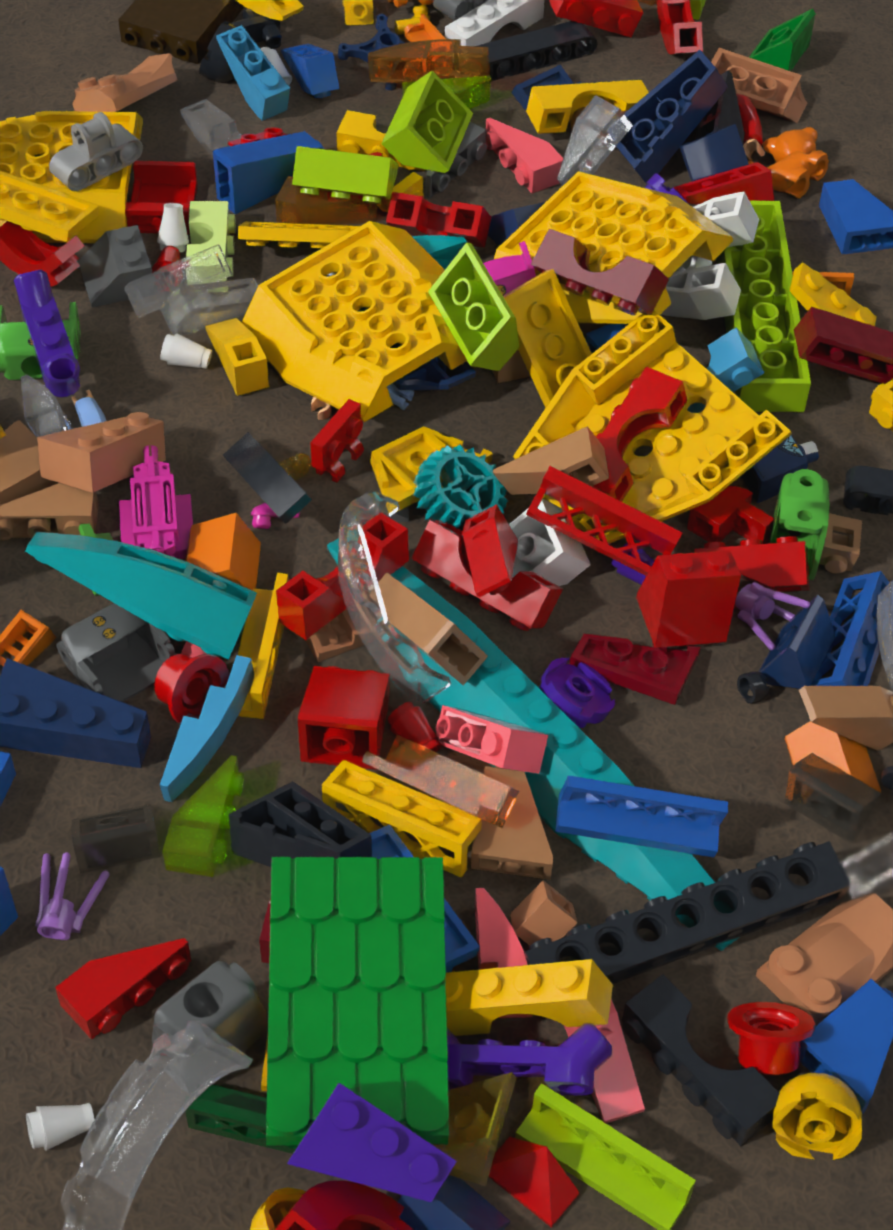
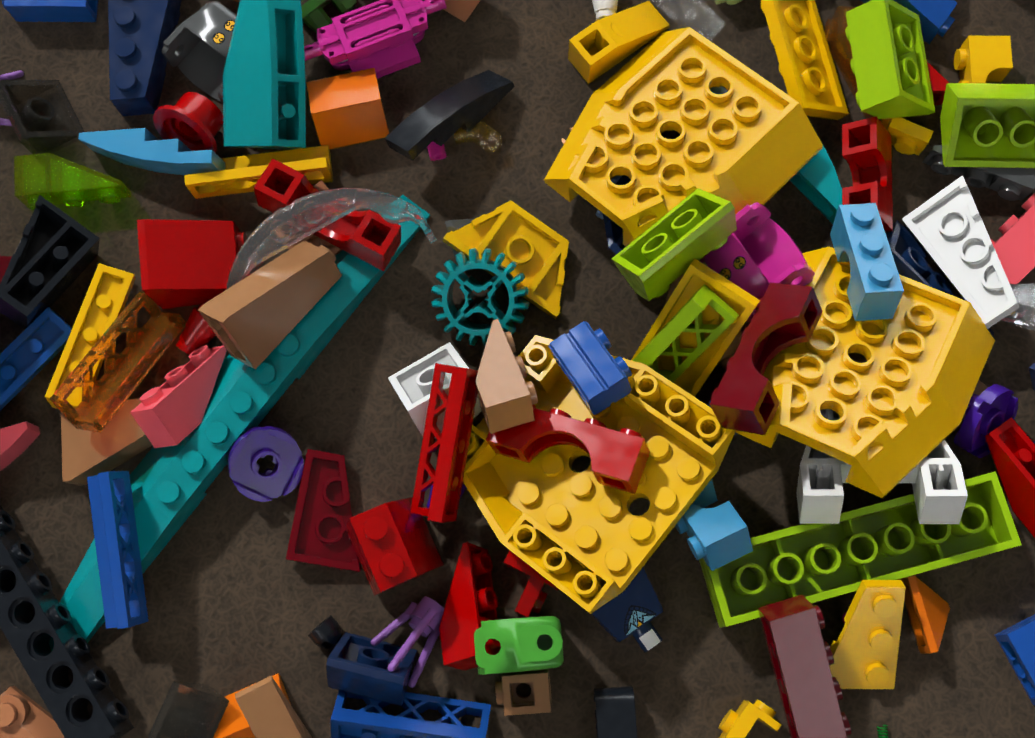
camera: 80 degrees right, 25 degrees up
(336, 436) = (502, 157): red plate -> none
(490, 551) = (396, 340): red slope -> none
(523, 180) = (961, 247): none -> white wing
(526, 599) = (368, 383): red arch -> none
(543, 915) = (26, 487): nougat panel -> none
(547, 206) = (874, 278): none -> dark azure arch
(552, 335) = (682, 323): none -> lime fence
(566, 399) = (590, 367): none -> blue brick

